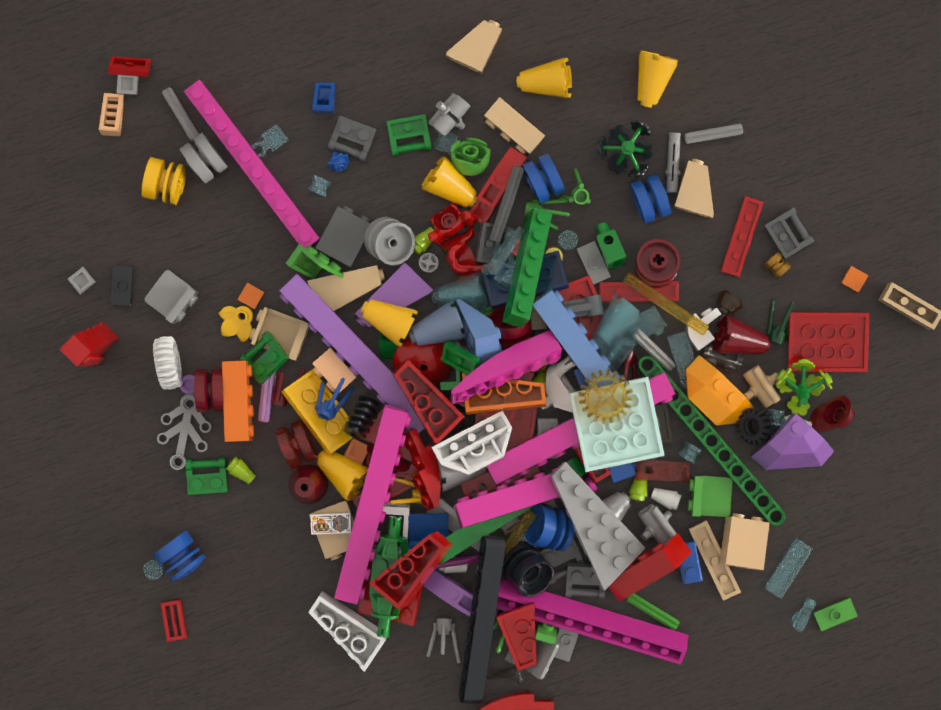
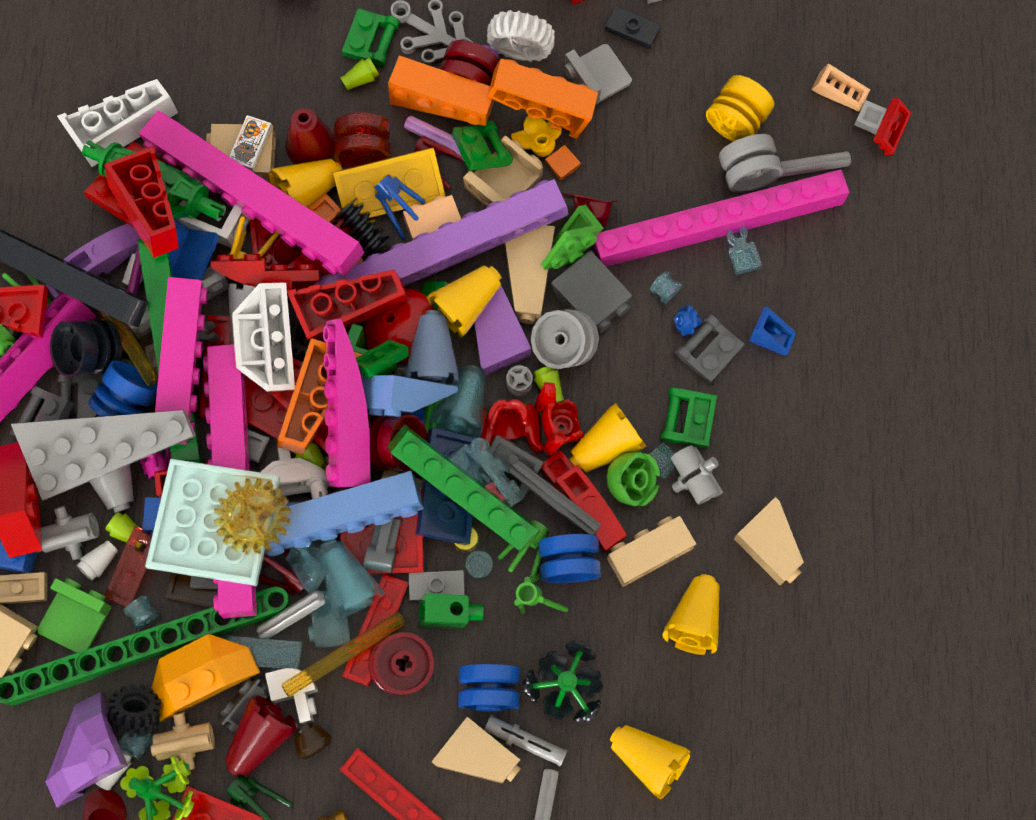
camera: 105 degrees right, 15 degrees down
(213, 325) = (543, 96): none -> orange wedge
(278, 257) = (599, 208): none -> dark red piece
(444, 626) = (67, 230): light grey plant -> none

